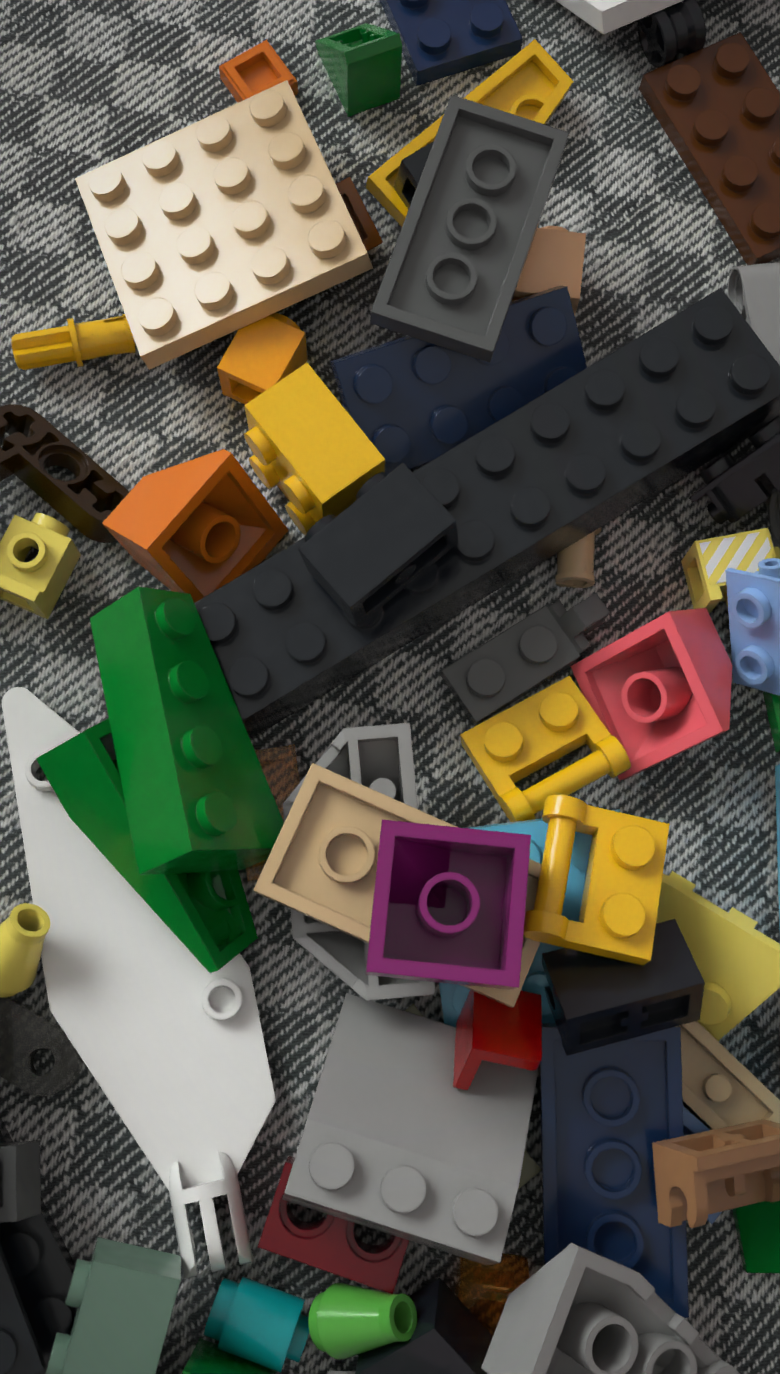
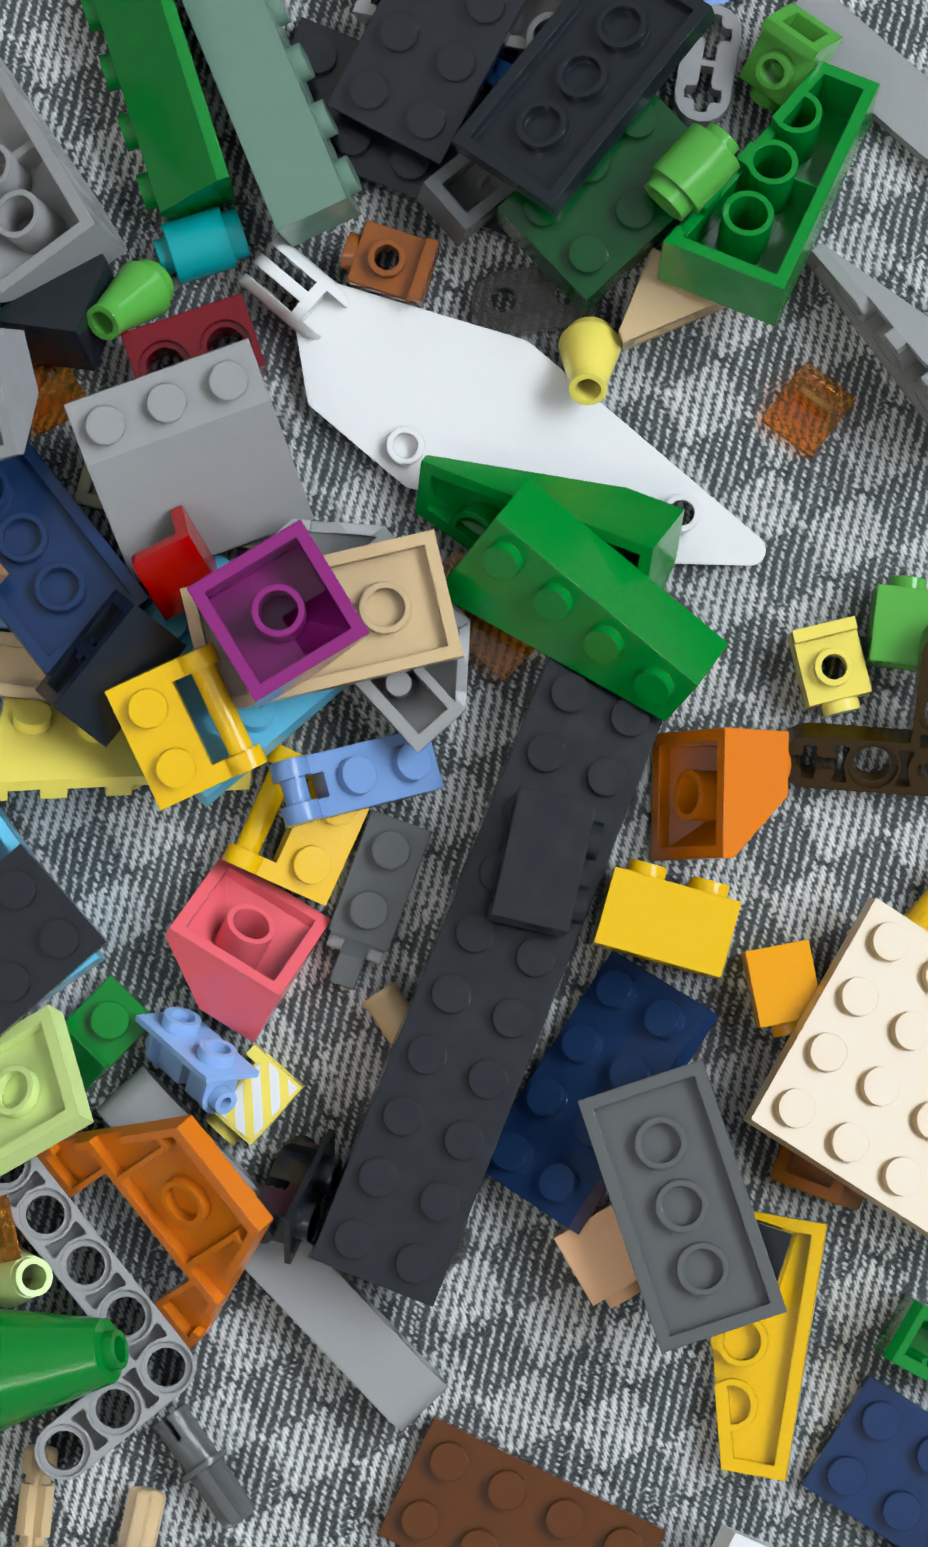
camera: 150 degrees right, 10 degrees up
(115, 1145) = (403, 283): none -> dark orange brick
(481, 749) = (354, 778): none -> medium blue plate

